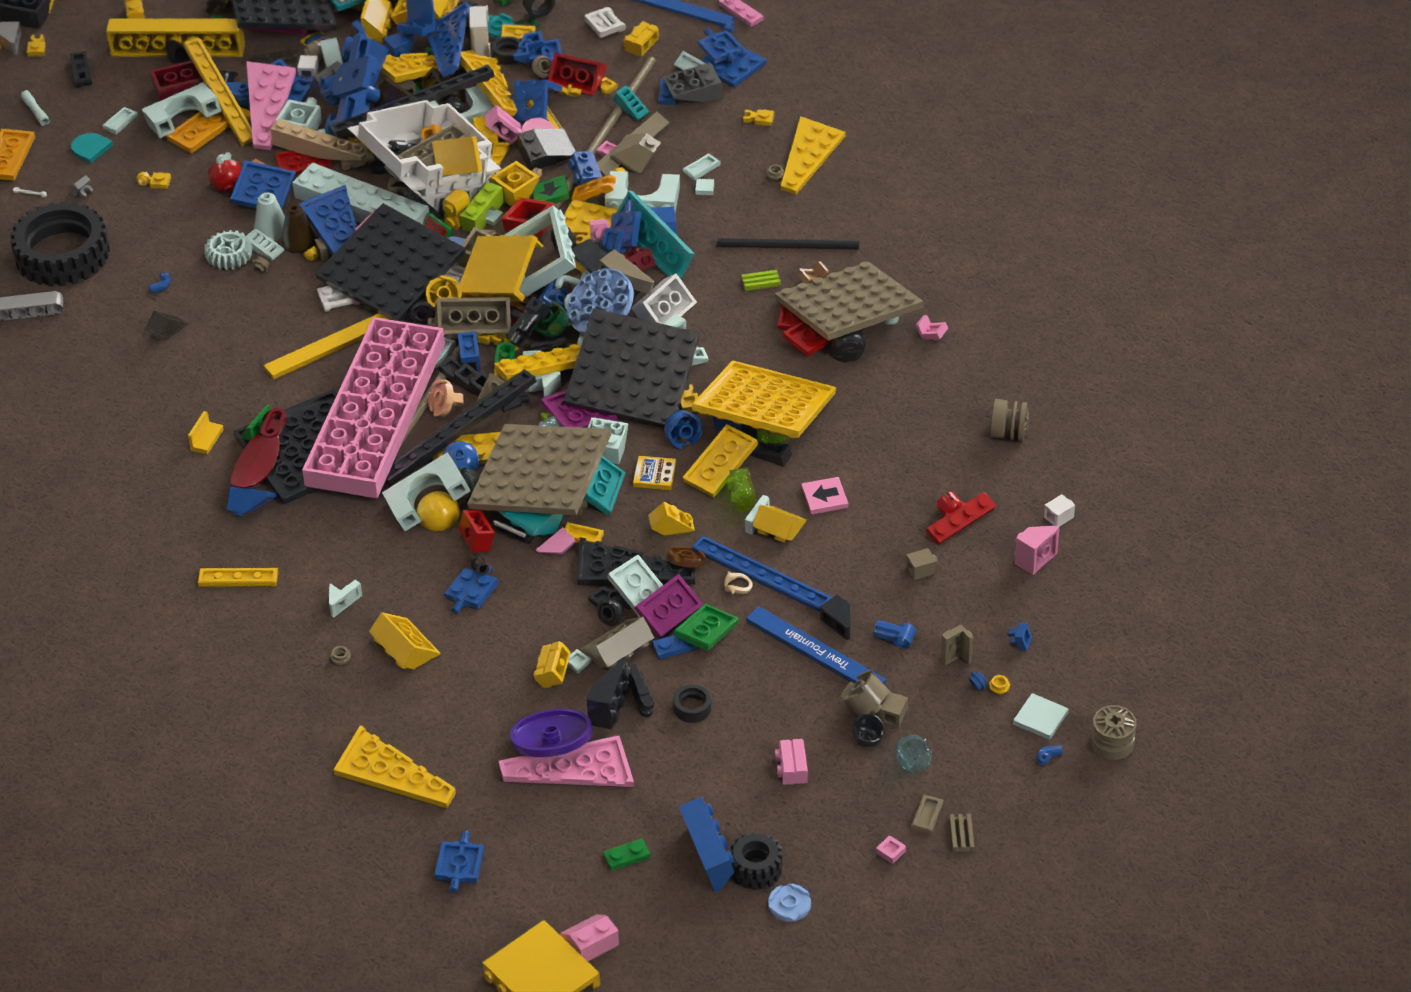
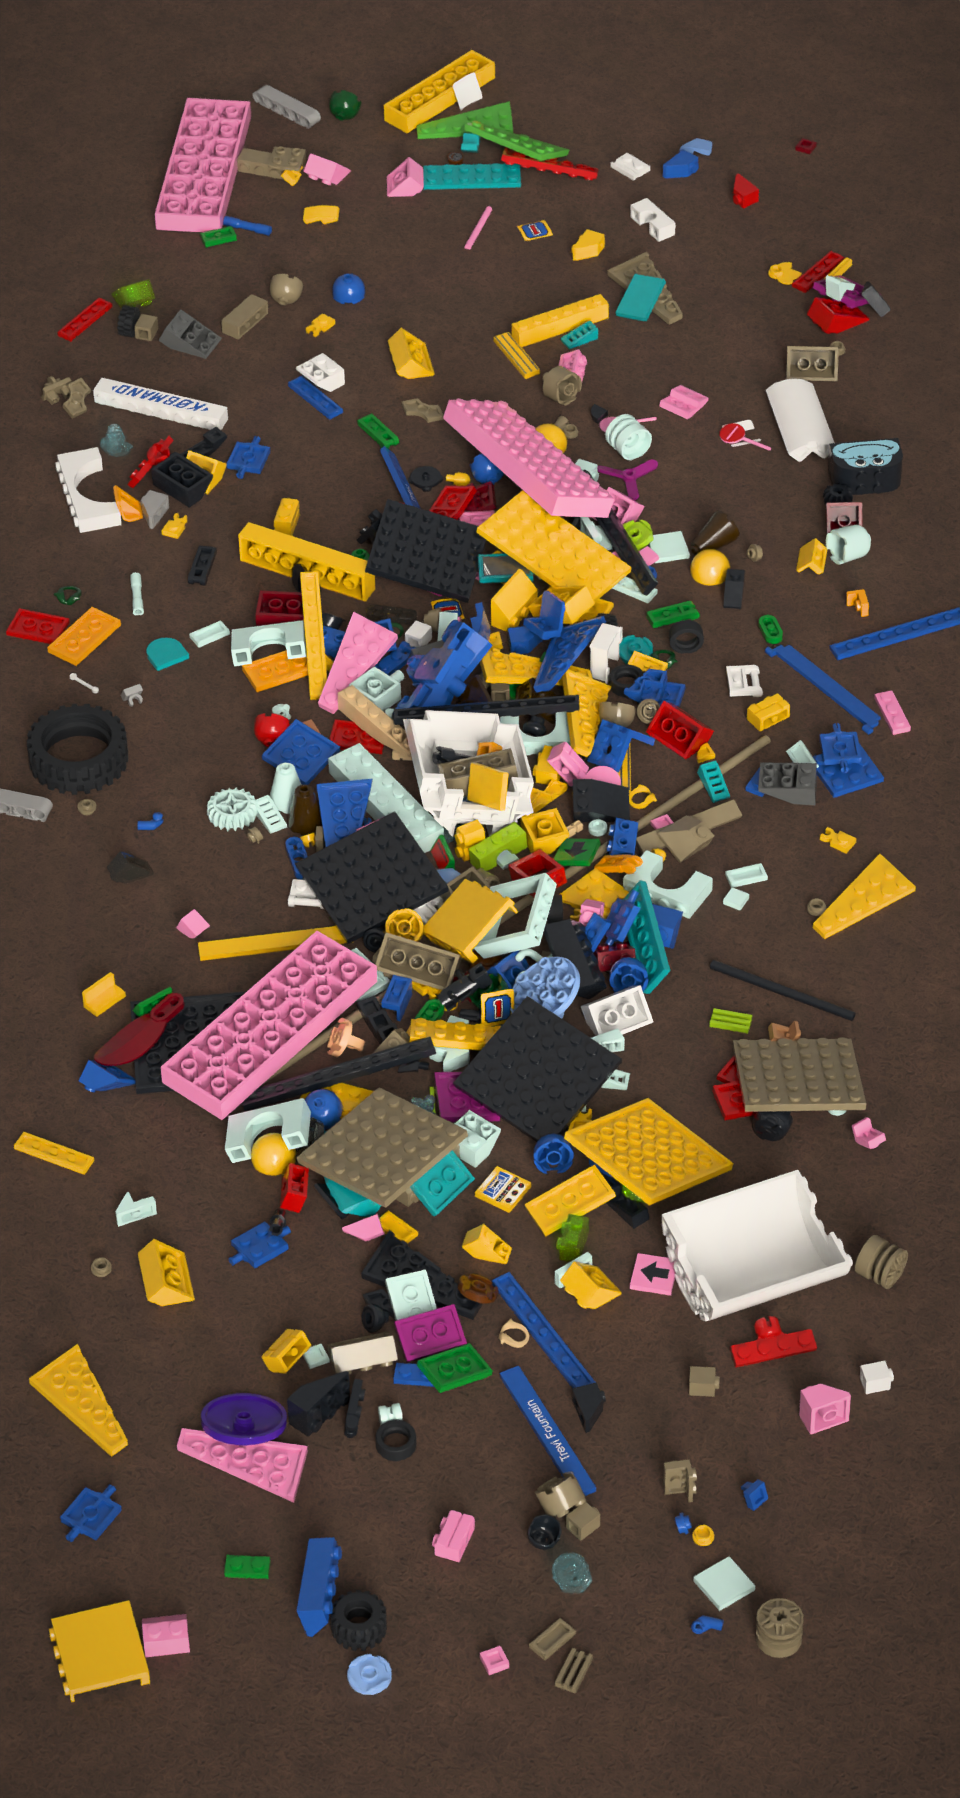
camera: 25 degrees right, 0 degrees up
(94, 289) = (86, 806): none -> dark tan plate
(158, 180) = (209, 711): yellow plate -> none
(251, 352) = (192, 924): none -> bright pink brick
(303, 269) = (292, 854): none -> blue beam
(521, 73) = (617, 713): none -> dark tan cylinder
(554, 168) = (597, 827): none -> light aqua tile
(564, 329) = (496, 1007): none -> sticker
(570, 91) = (663, 747): yellow piece -> none
(584, 132) = (650, 798): none -> yellow piece
(638, 279) = (589, 970): dark tan slope -> none
(658, 268) = (628, 973): none -> blue cylinder
(672, 684) = (389, 1413): none -> light aqua wheel
(899, 635) = (636, 1446): blue piece -> none
(901, 443) = (751, 1246): none -> white cylinder

